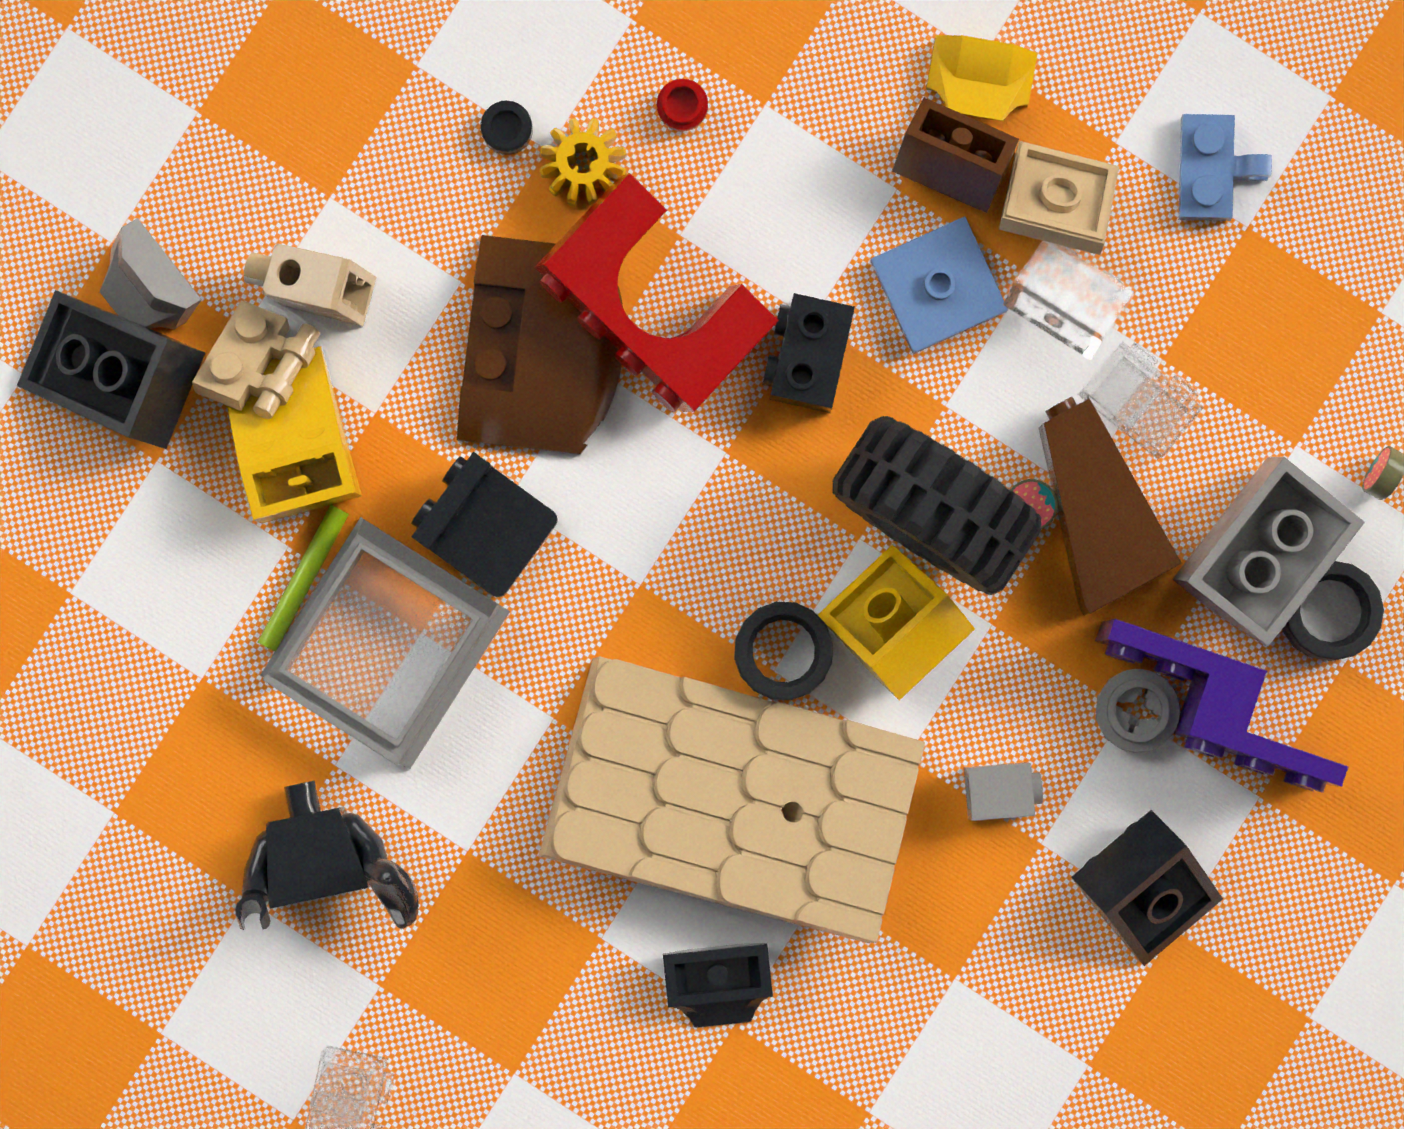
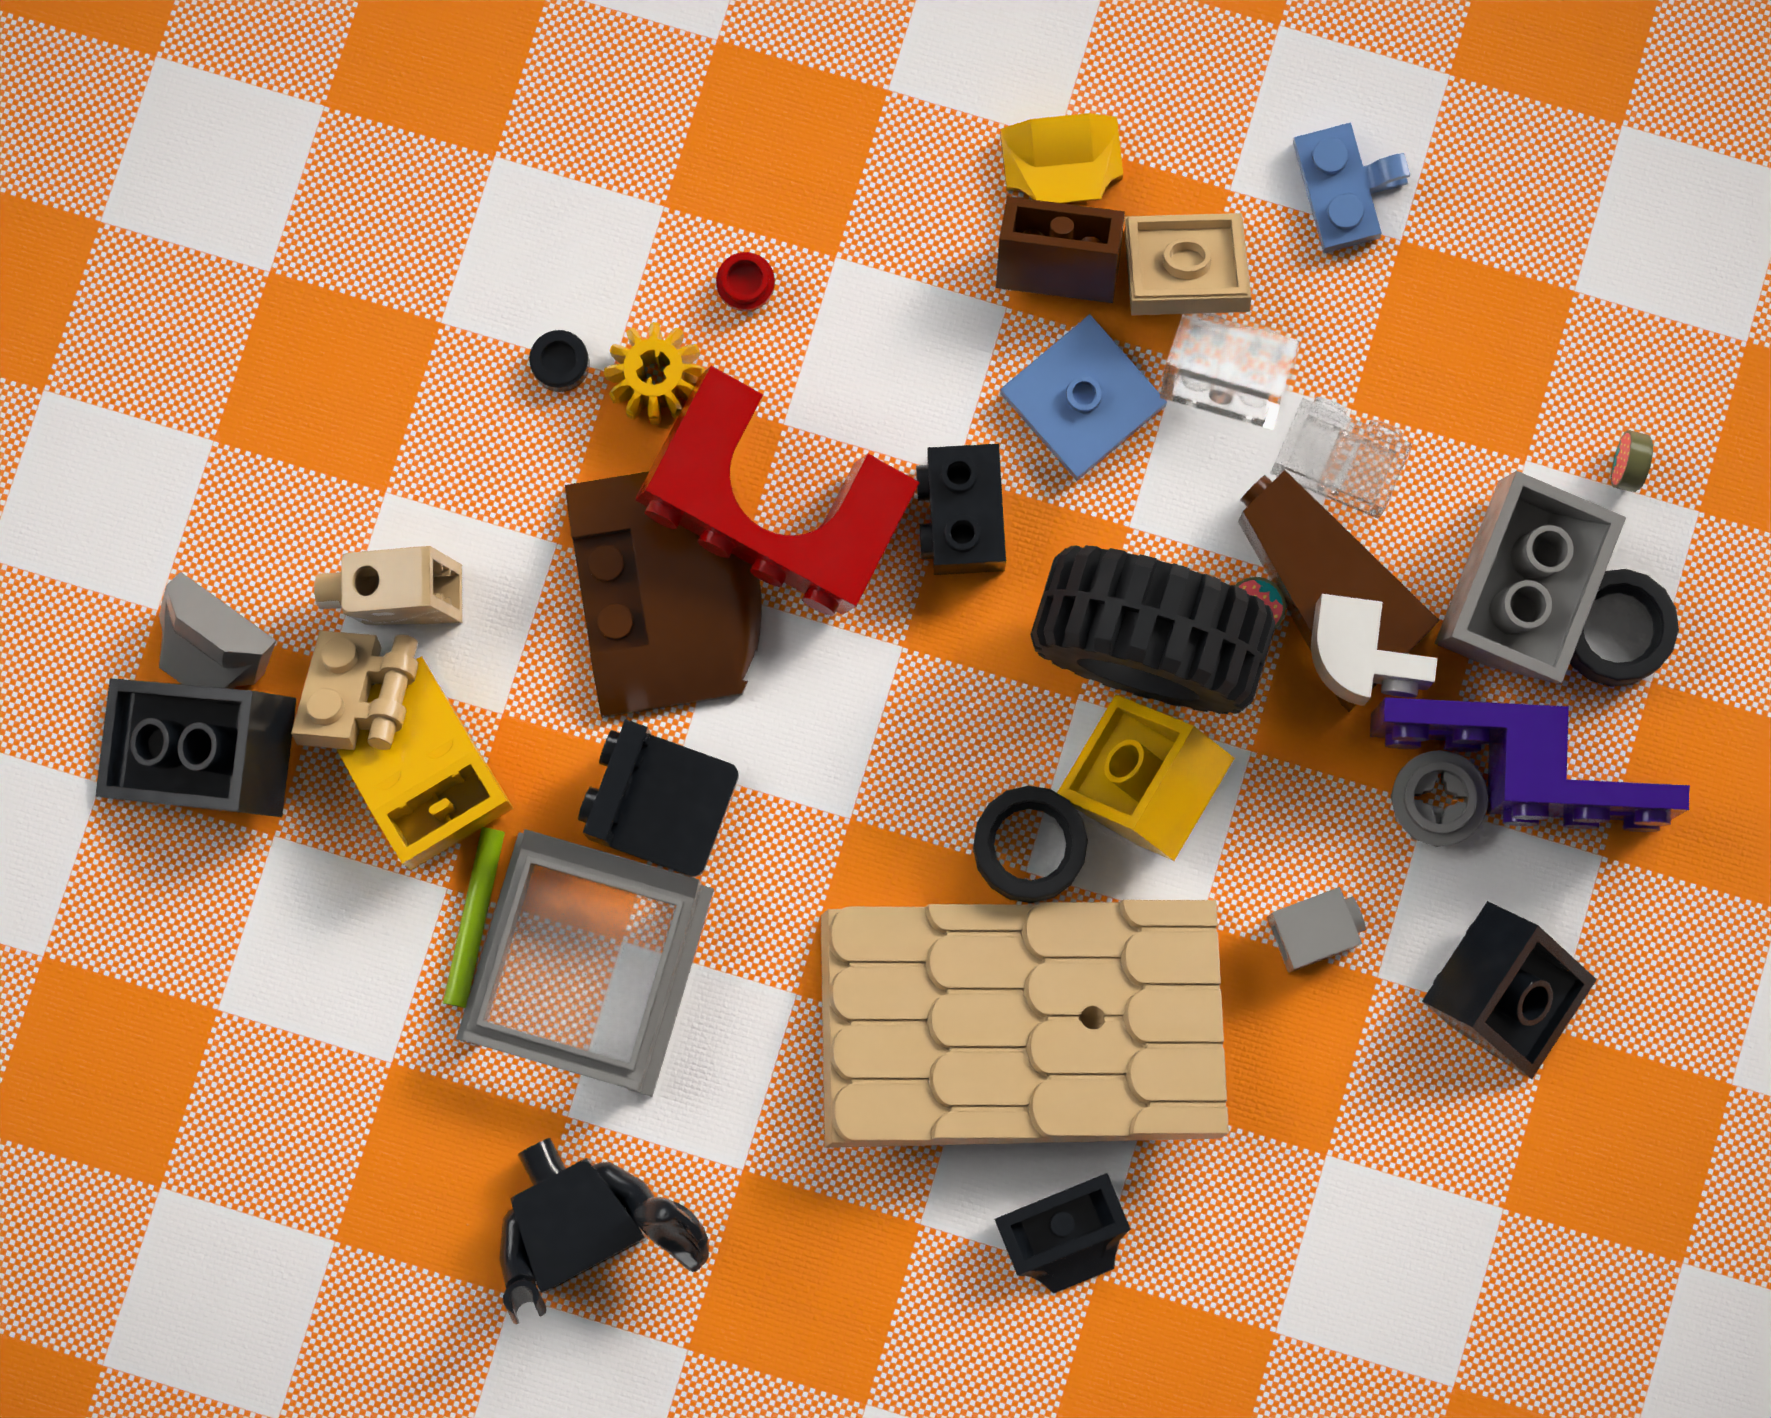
camera: 15 degrees left, 5 degrees down
(1095, 570) = (1348, 656): none -> white brick

